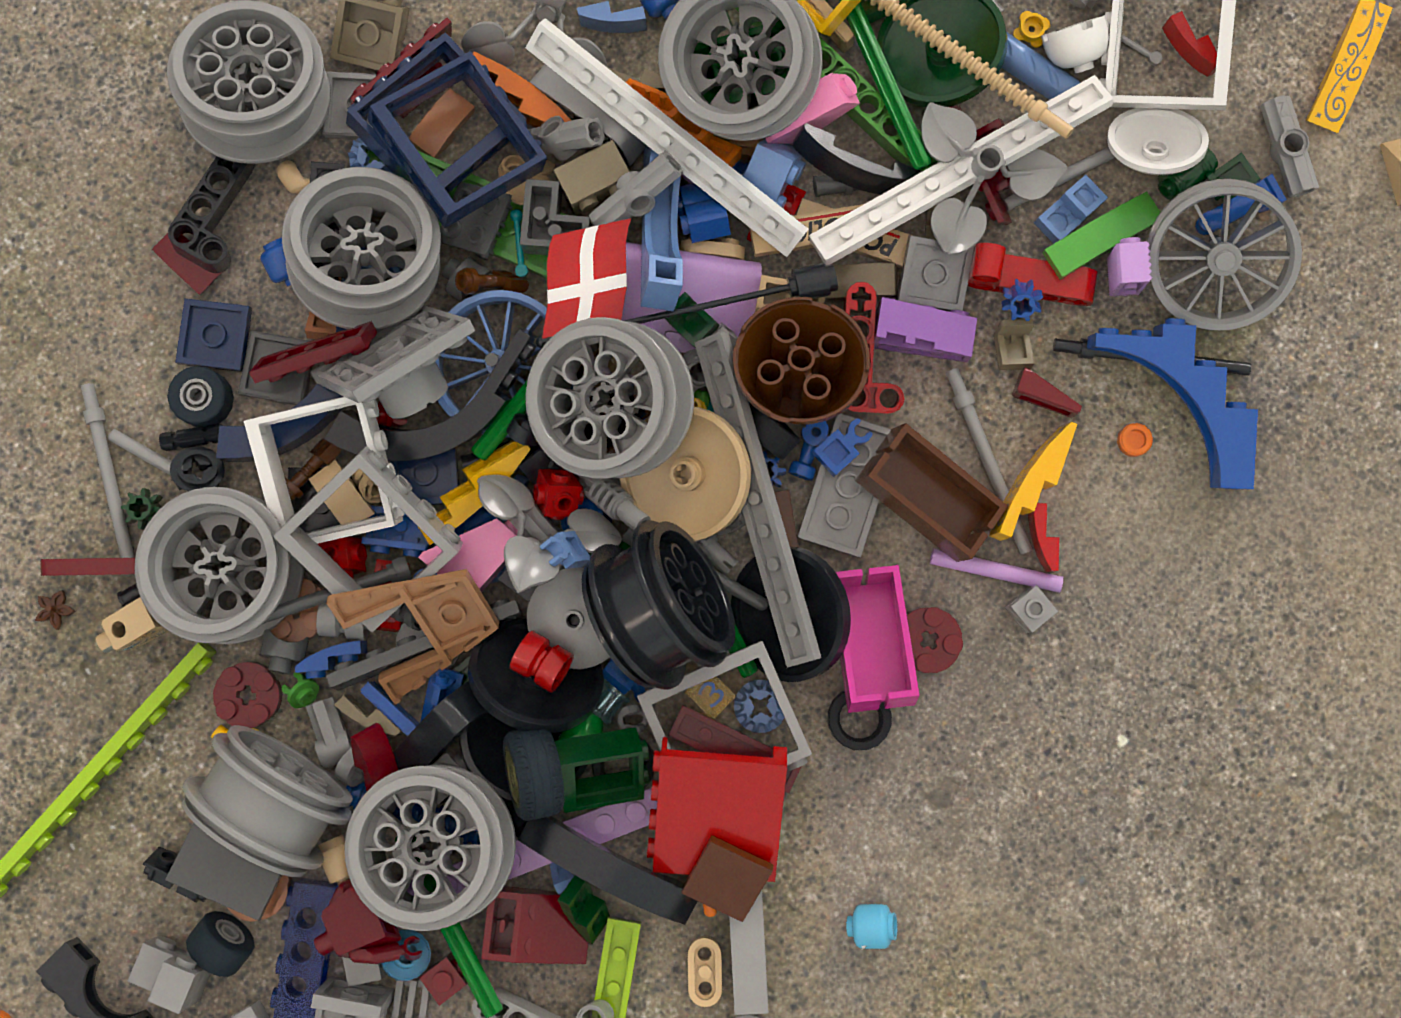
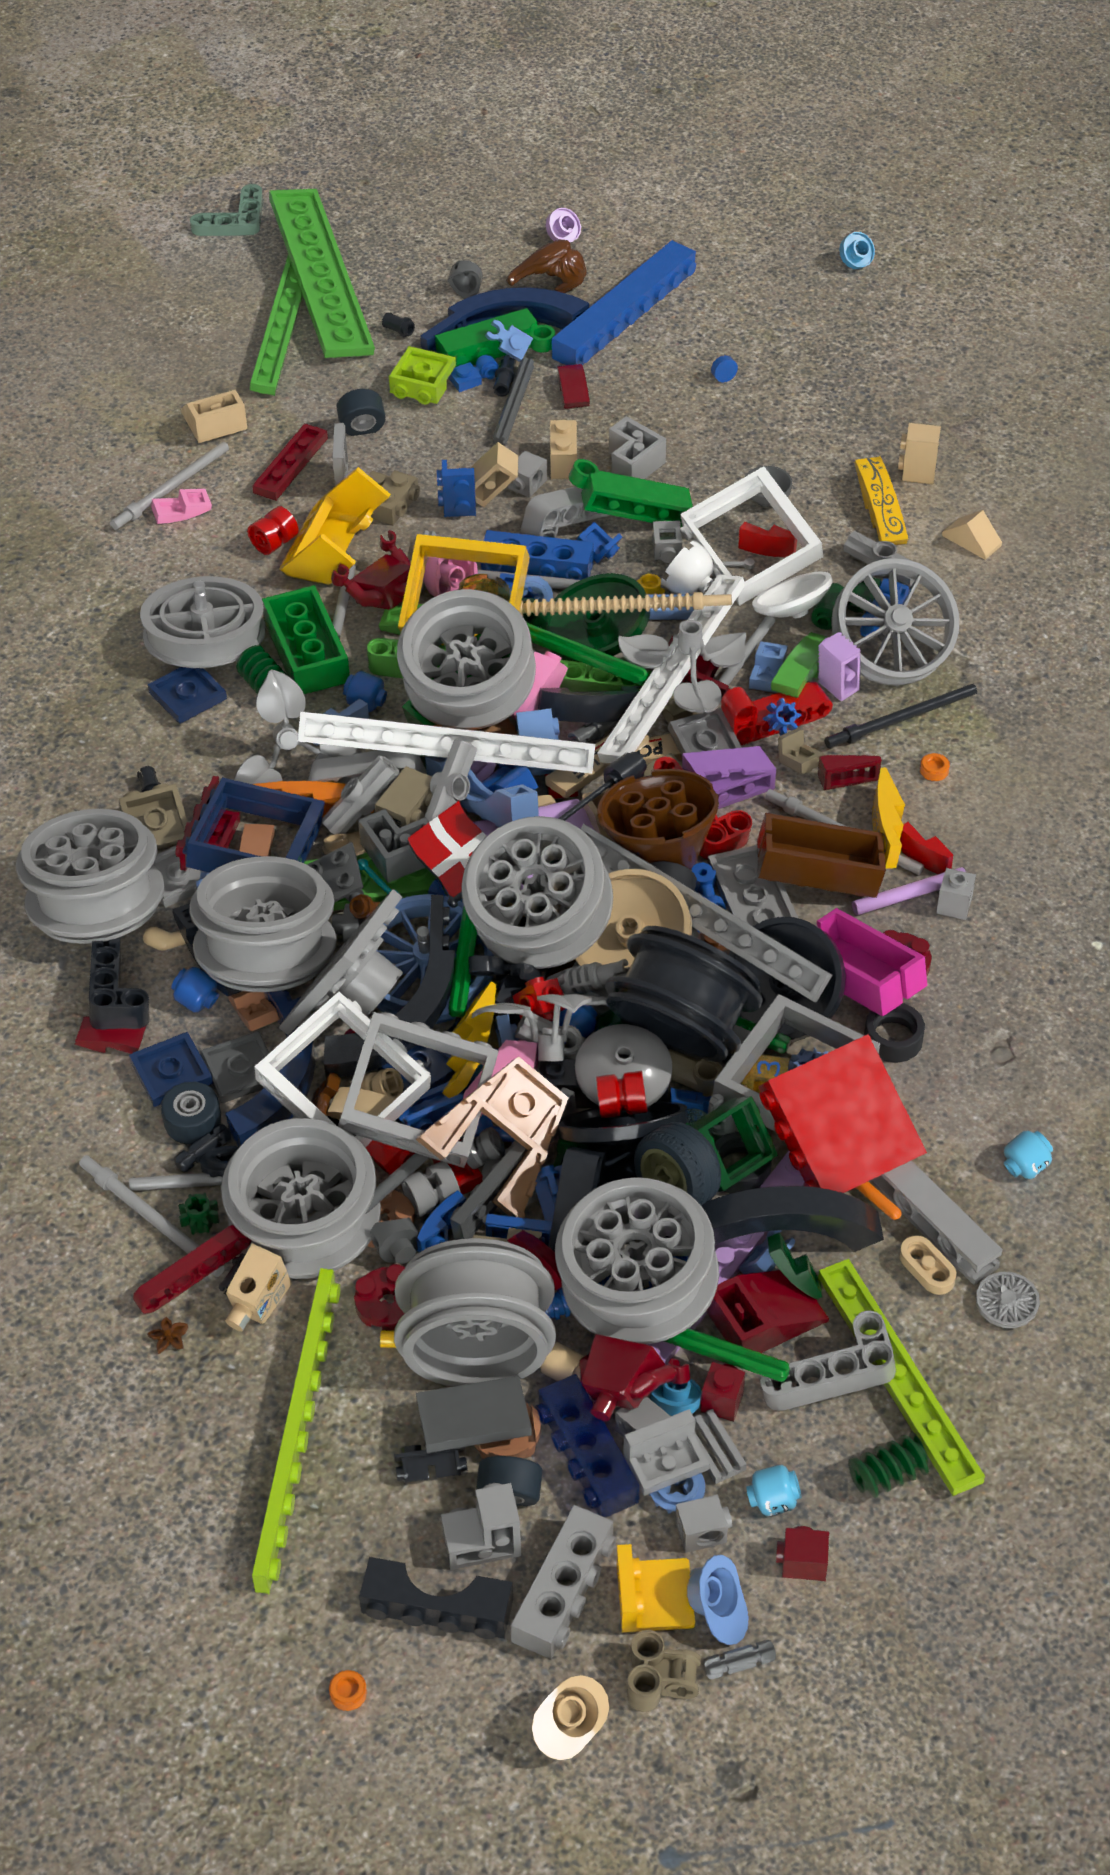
camera: 40 degrees left, 35 degrees down
(306, 355) = (264, 1024): dark red plate -> none
(495, 100) = (232, 832): dark blue window -> none
(566, 550) = (598, 1002): medium blue plate -> none
(727, 878) = (889, 1163): reddish brown tile -> none
(839, 450) = (730, 868): blue plate -> none
(1170, 354) = (950, 705): blue arch -> none

